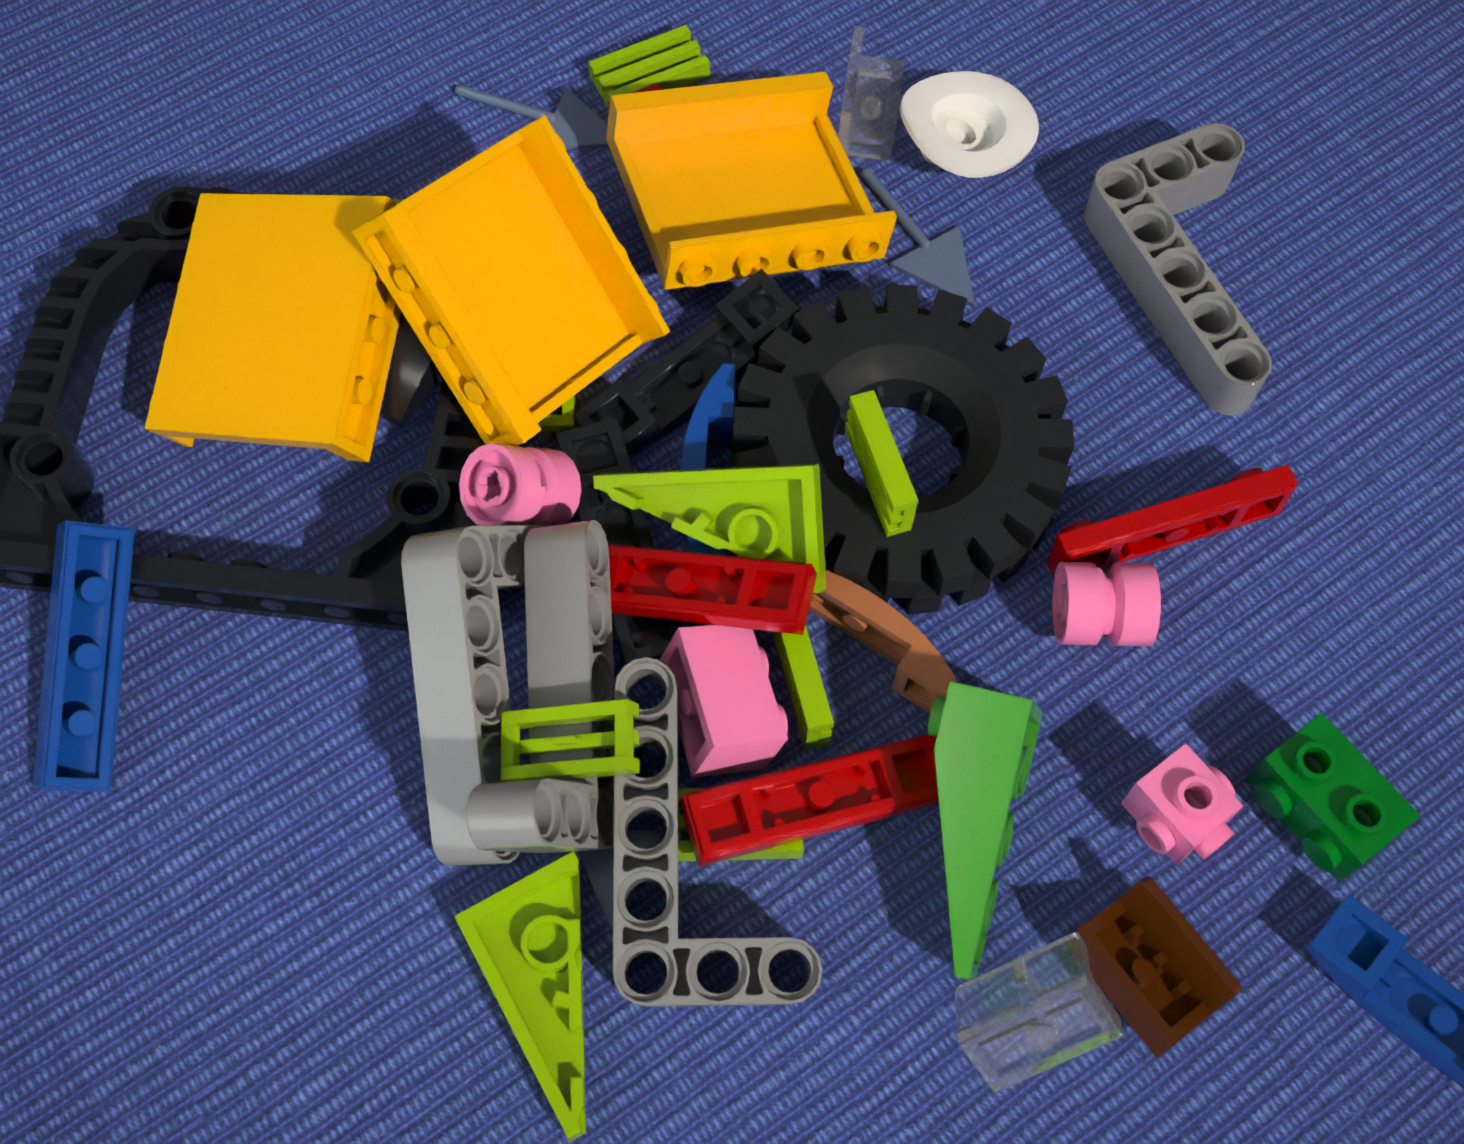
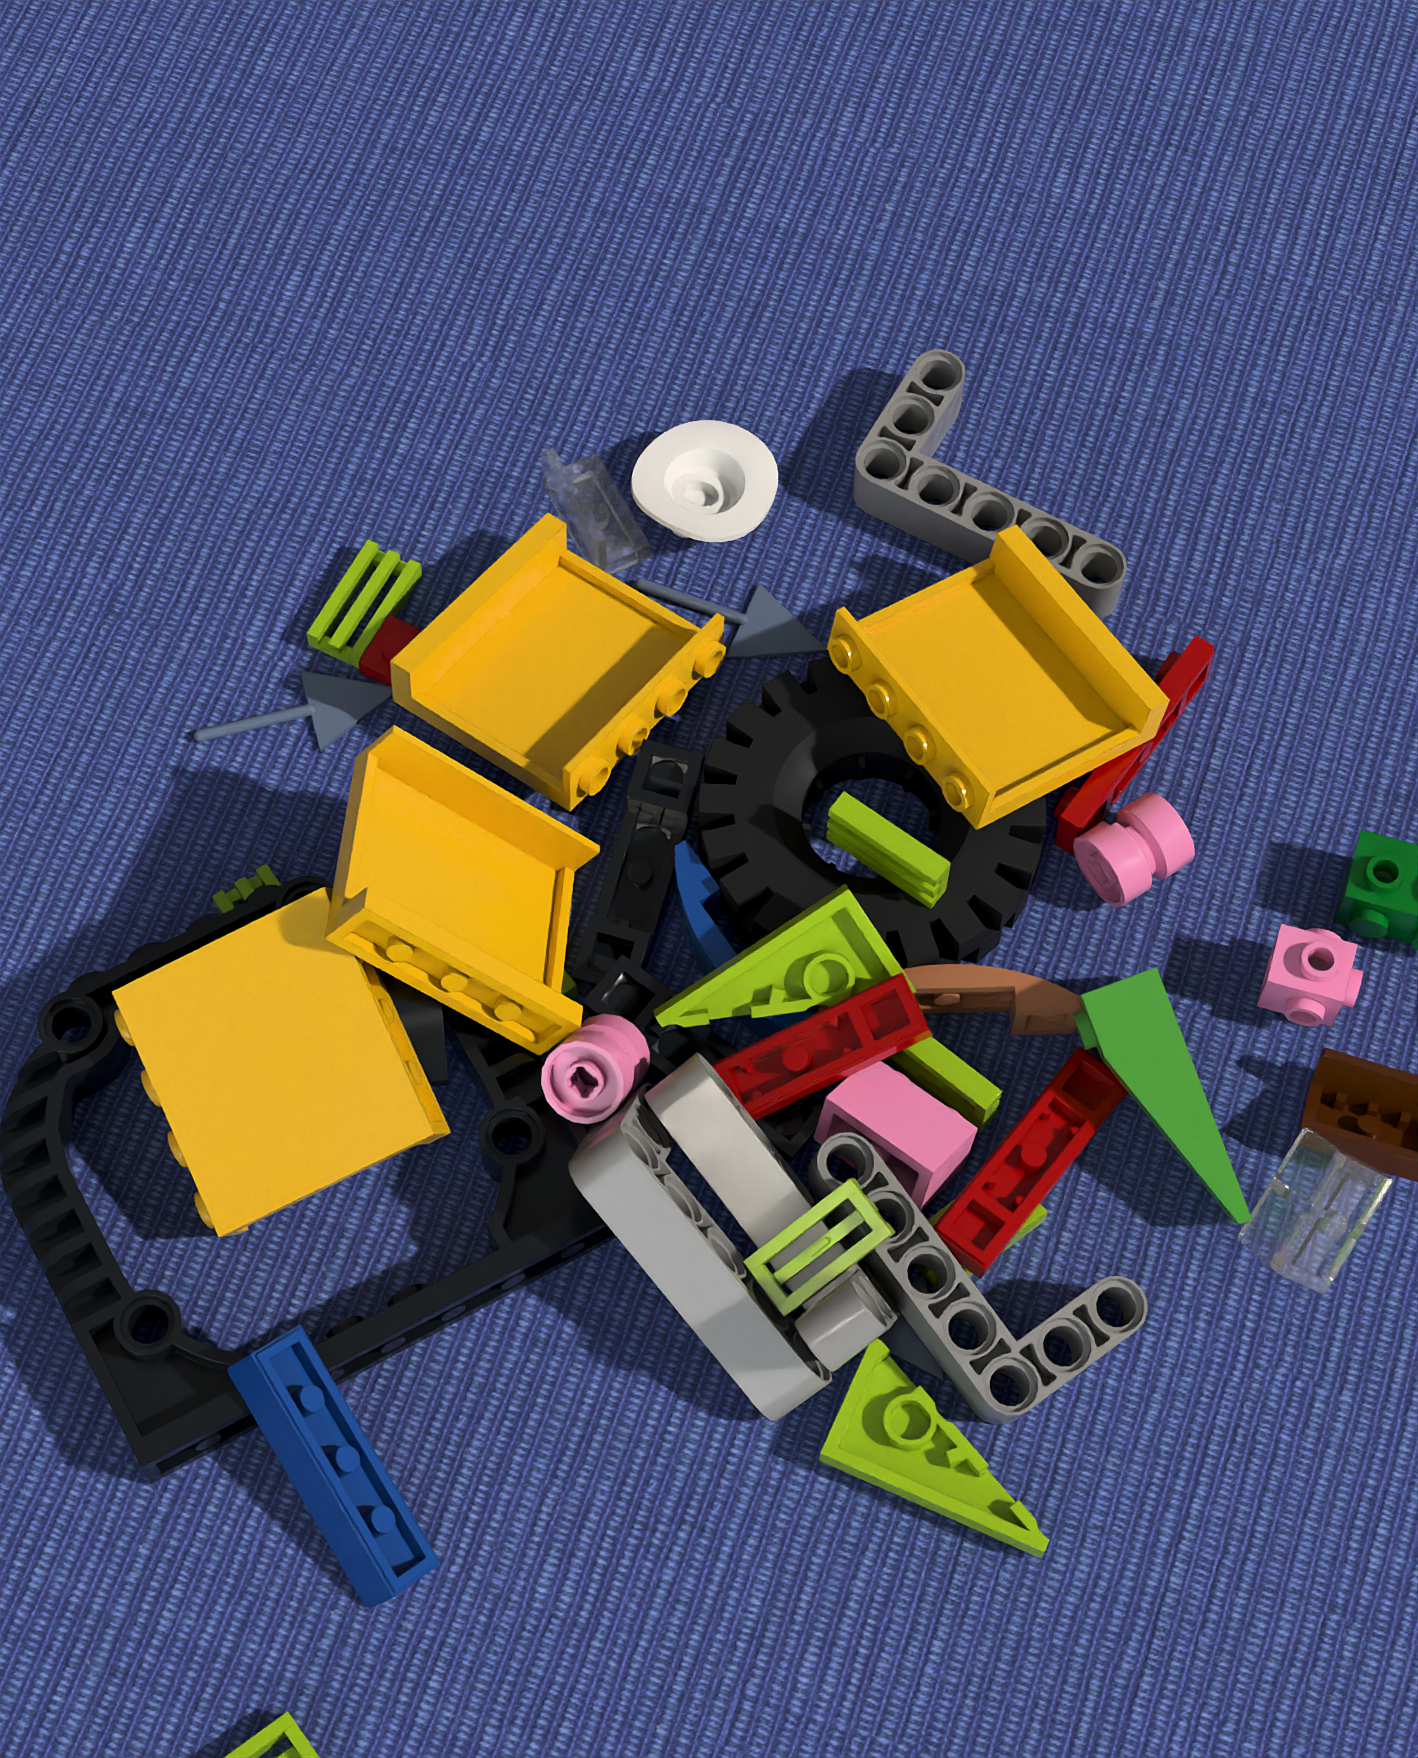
camera: 35 degrees left, 0 degrees up
(1082, 396) = (999, 681): none -> yellow panel

